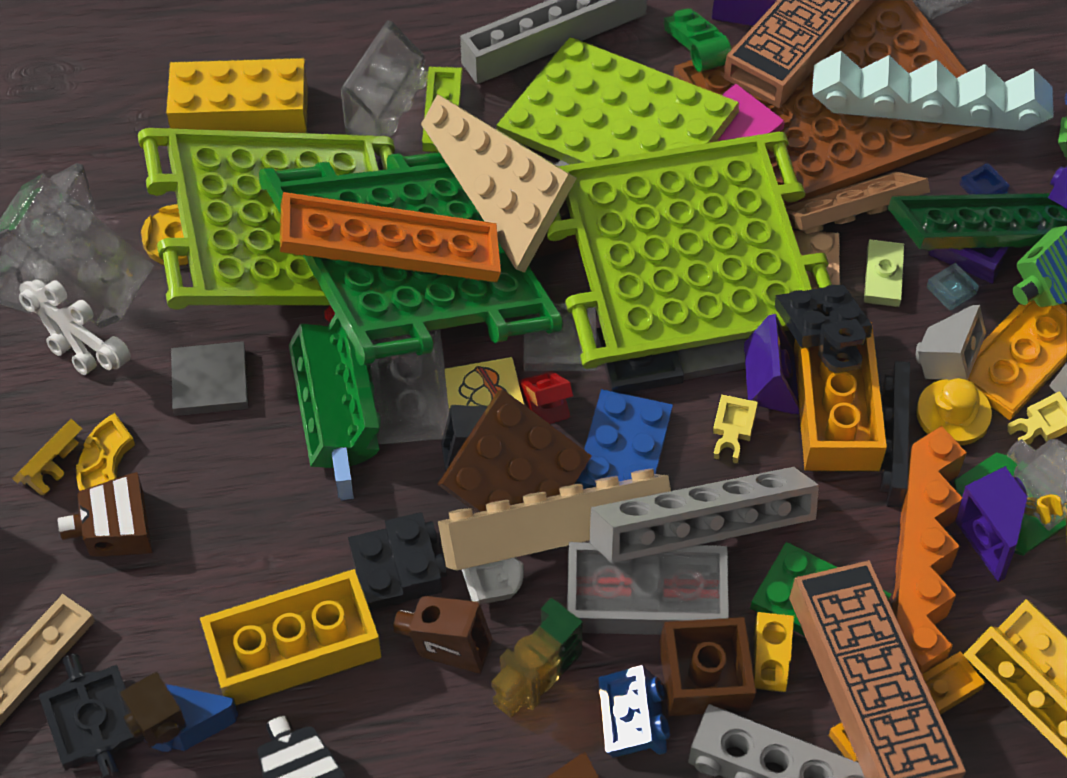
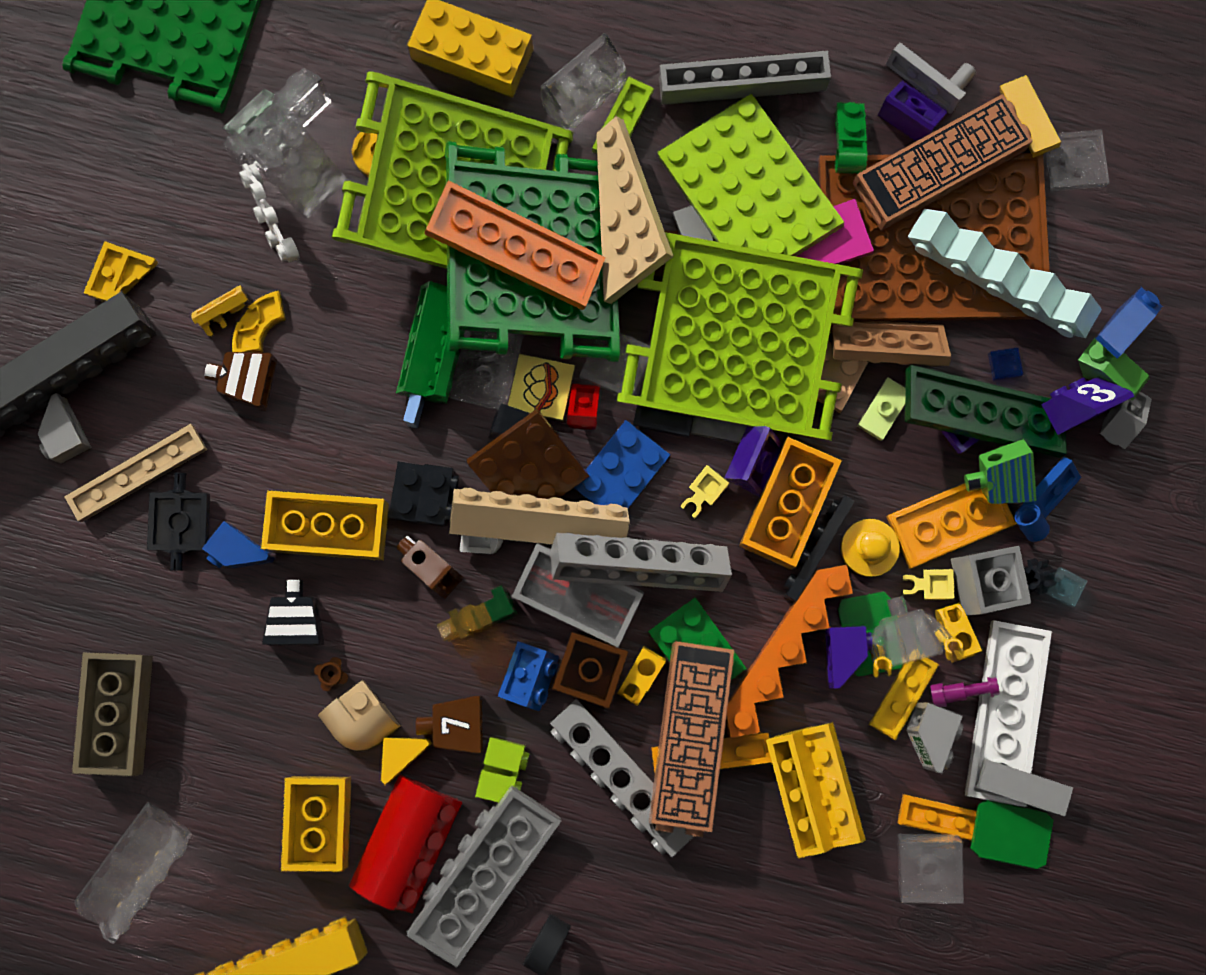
camera: 25 degrees right, 25 degrees up
(152, 711) = (210, 547): dark brown brick -> none
(209, 378) = (355, 288): flat silver tile -> none
(828, 320) = (805, 462): black plate -> none
(952, 286) = (927, 445): clear light blue plate -> none
(952, 345) = (896, 498): light grey slope -> none

